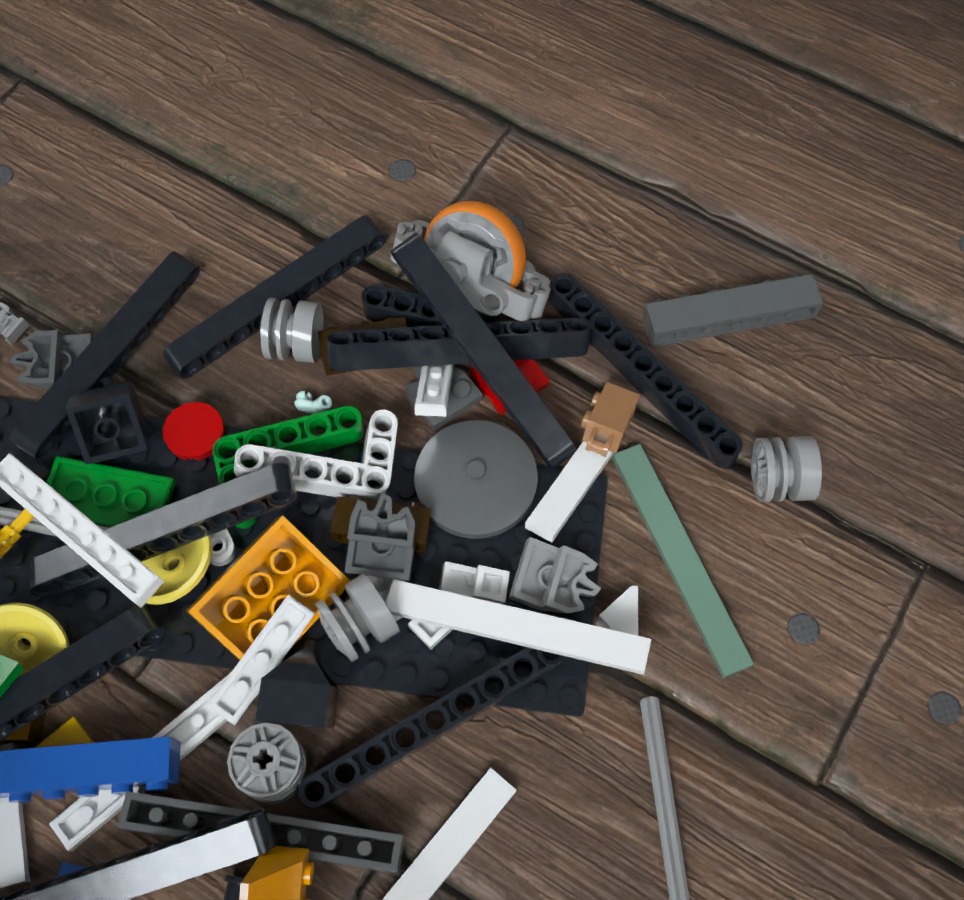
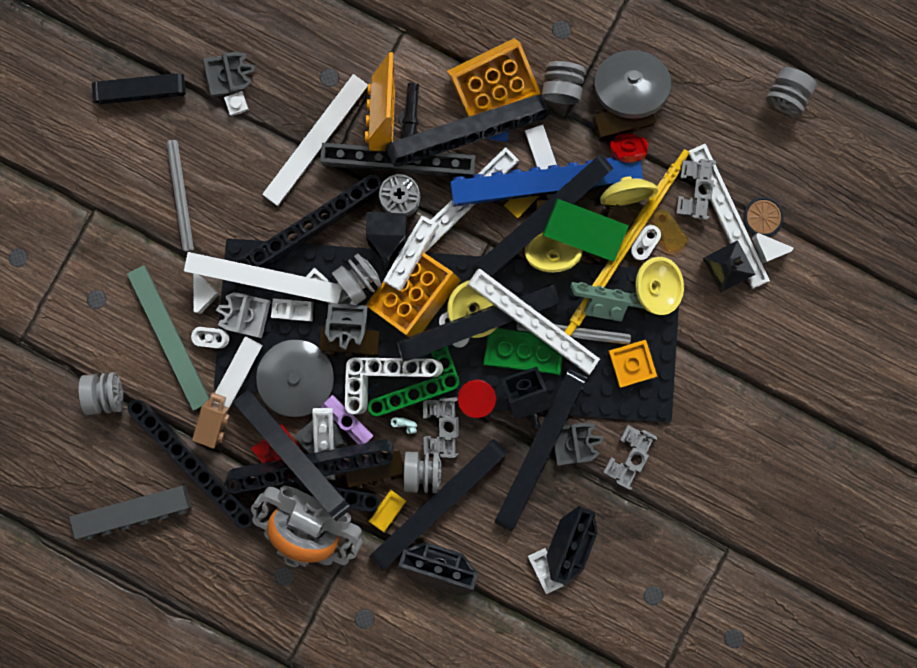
camera: 175 degrees right, 20 degrees up
(97, 230) = (571, 545): none -> black wedge
(140, 208) = (540, 565): none -> white slope
(249, 379) = (447, 443): none -> light grey piece
(284, 214) = (438, 568): none -> black wedge
(347, 299) = (387, 511): none -> yellow tile
(386, 397) = (356, 430): none -> lavender piece
(609, 548) = (211, 337): none -> white plate

